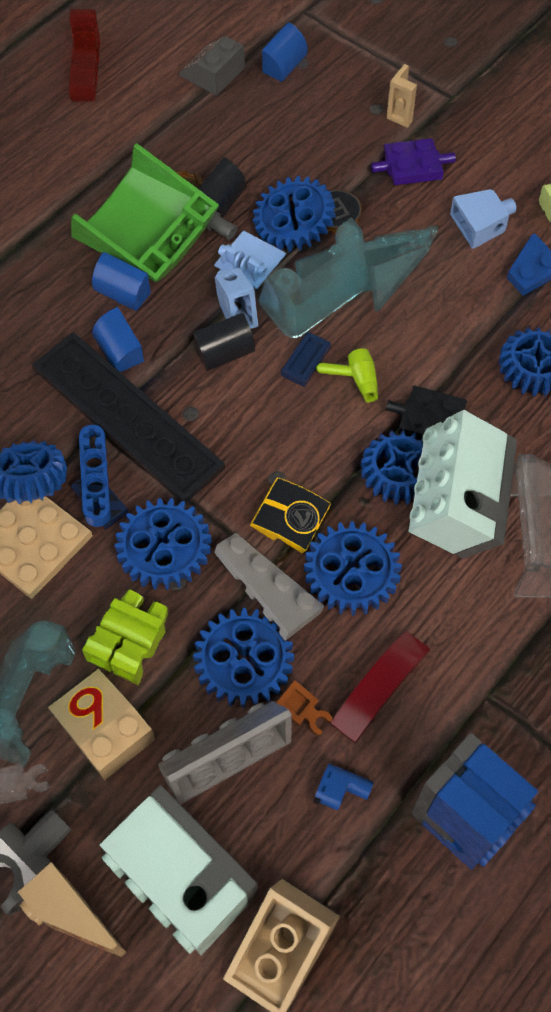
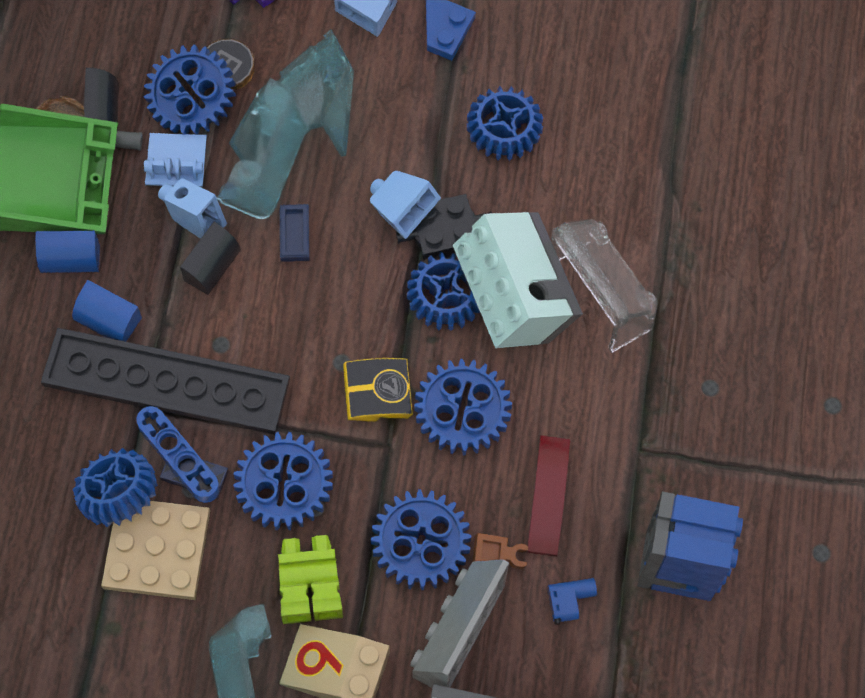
camera: 35 degrees left, 5 degrees up
(277, 593) = (415, 466): light grey wing -> none
(361, 368) = (352, 215): lime piece -> none
(409, 376) = (403, 200): none -> light blue torso

